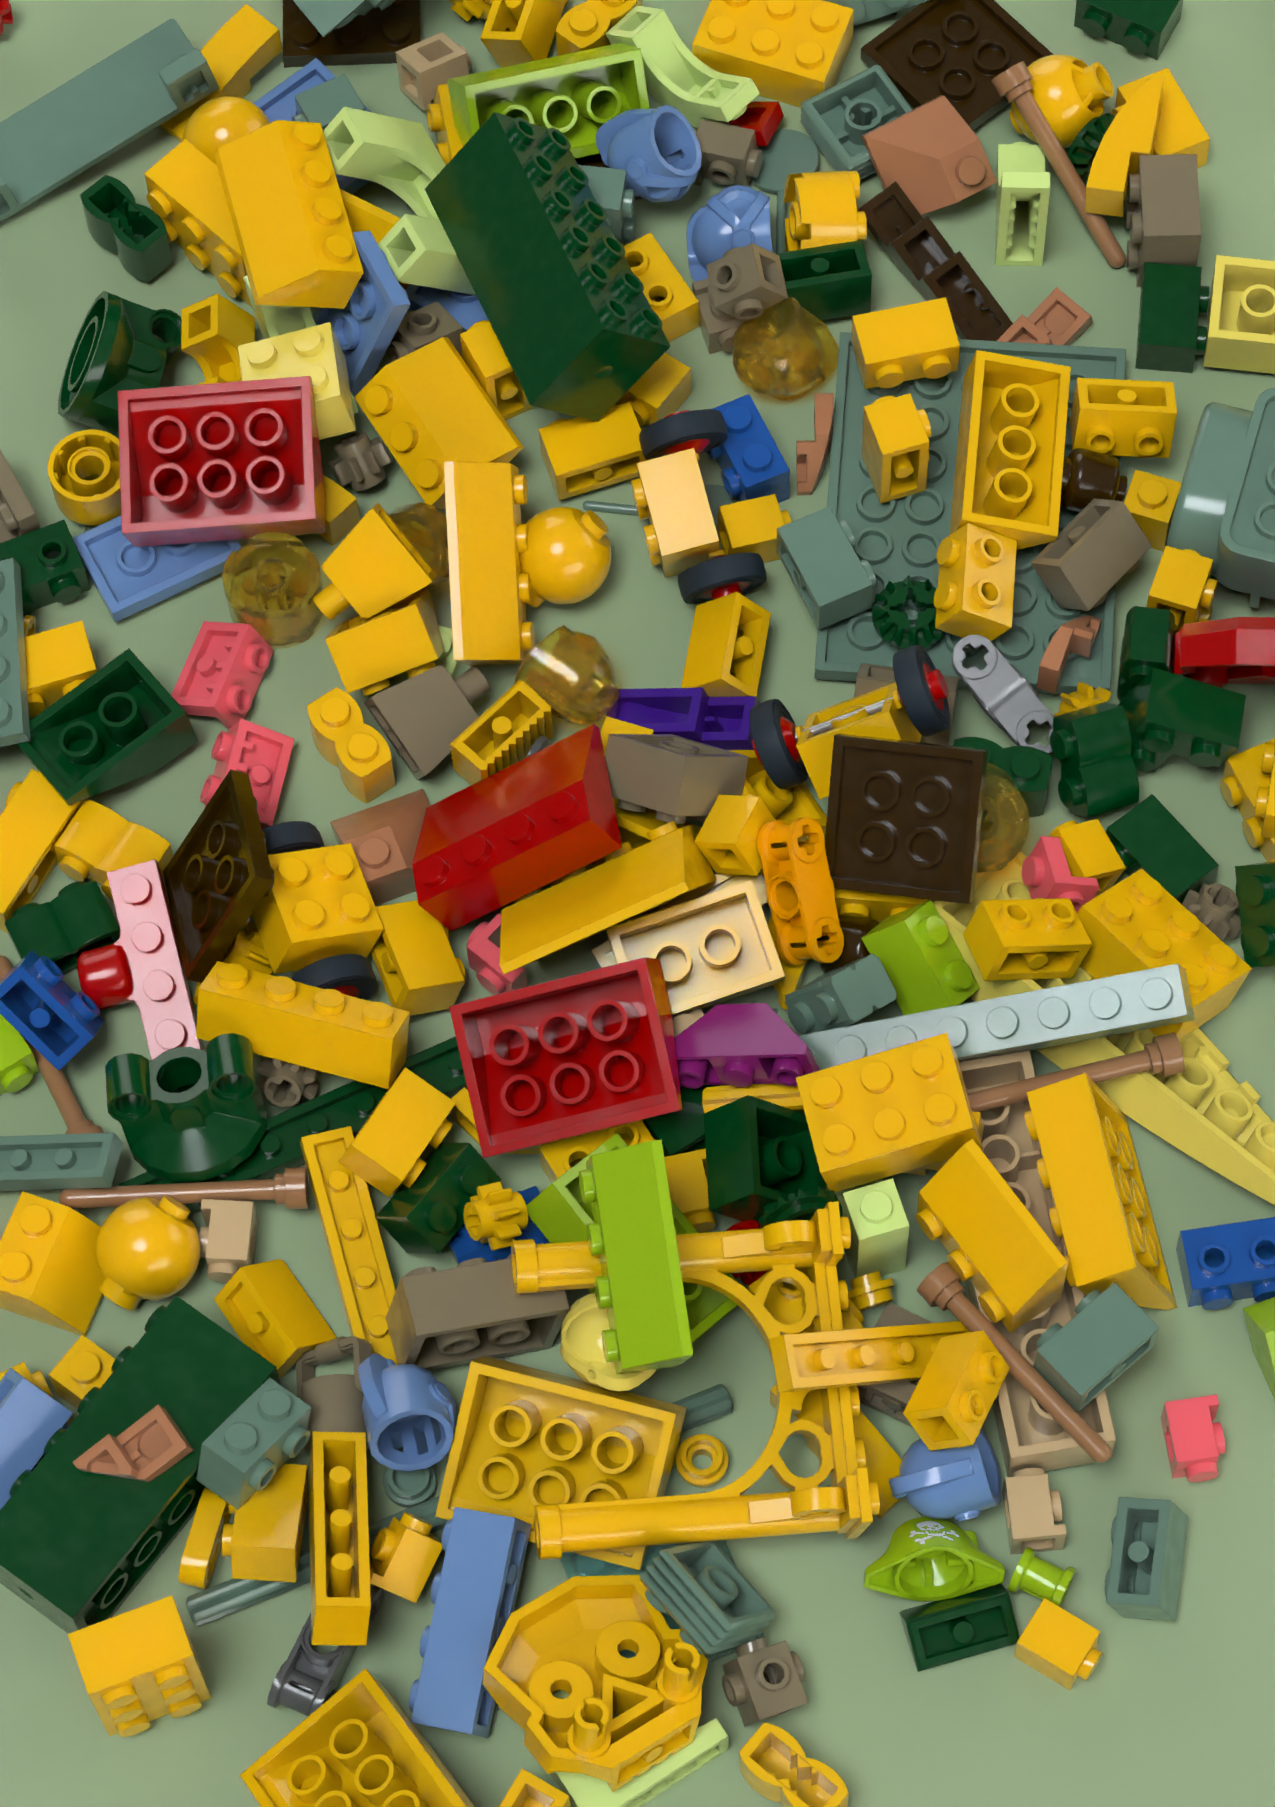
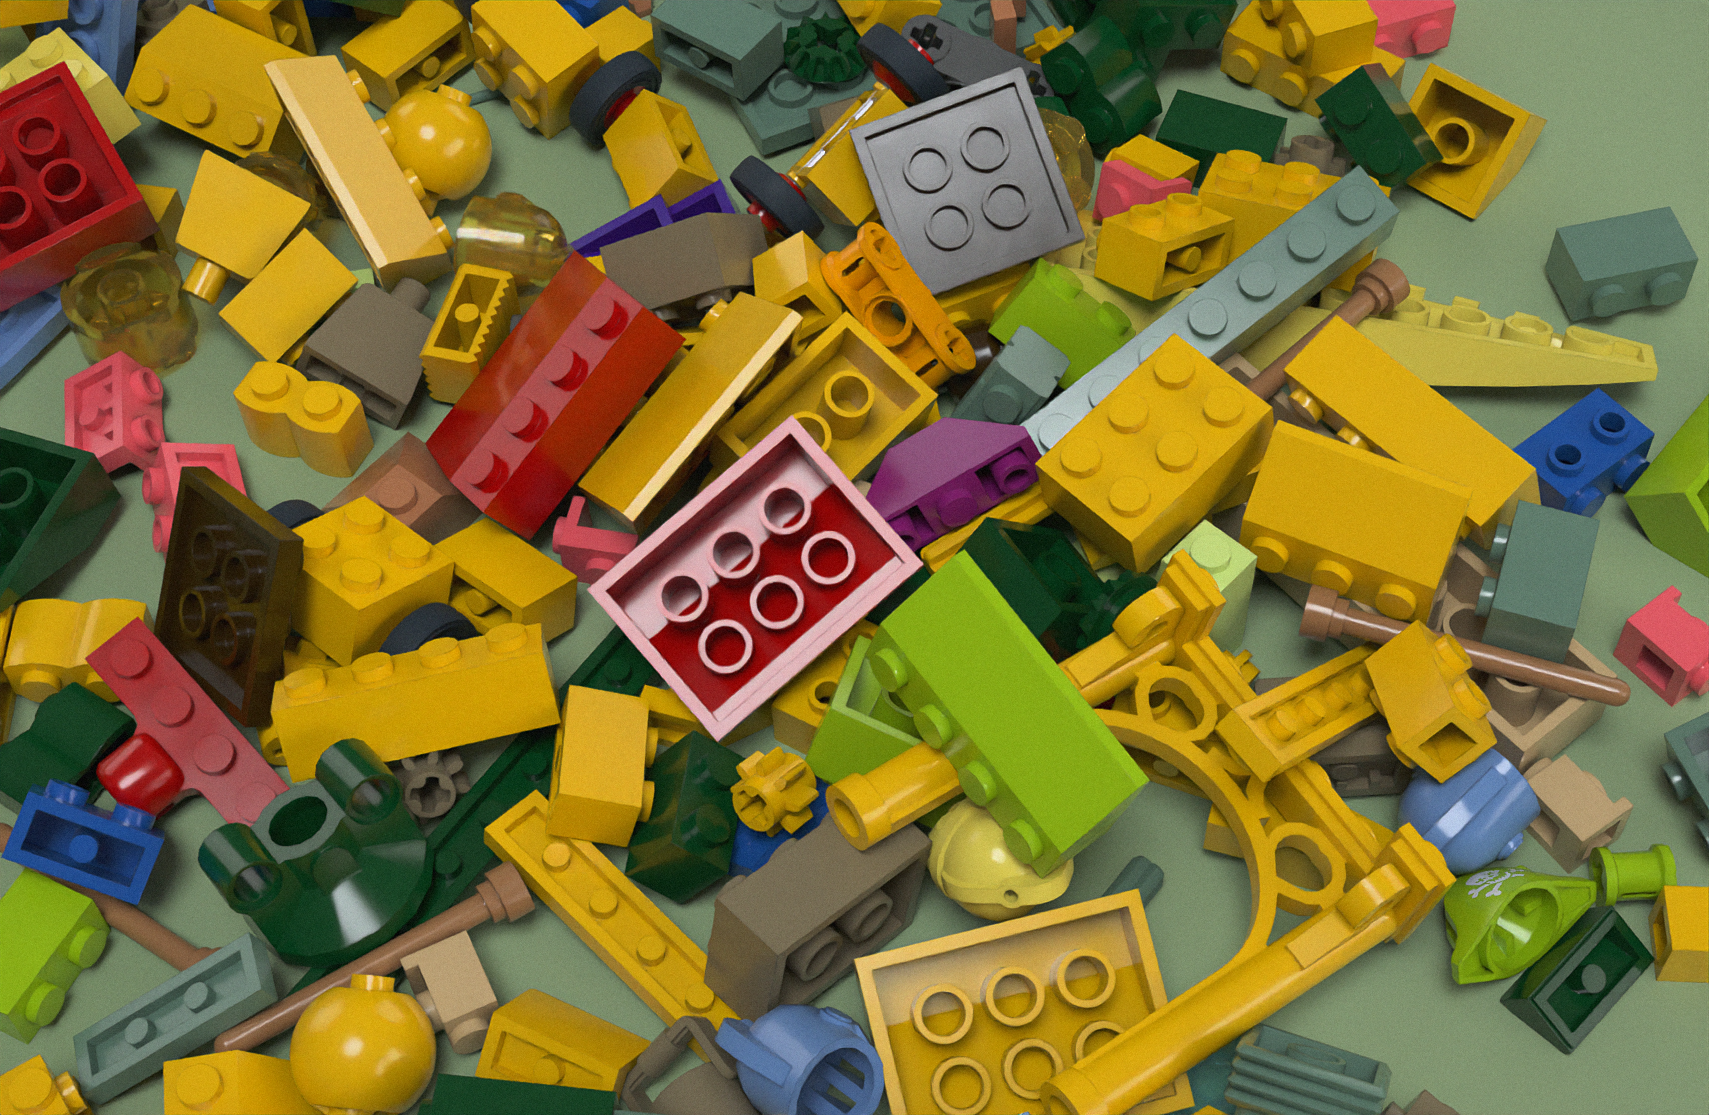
camera: 30 degrees left, 10 degrees down
(360, 461) = (161, 160): dark tan gear -> none
(702, 1445) = (1184, 938): yellow plate -> none

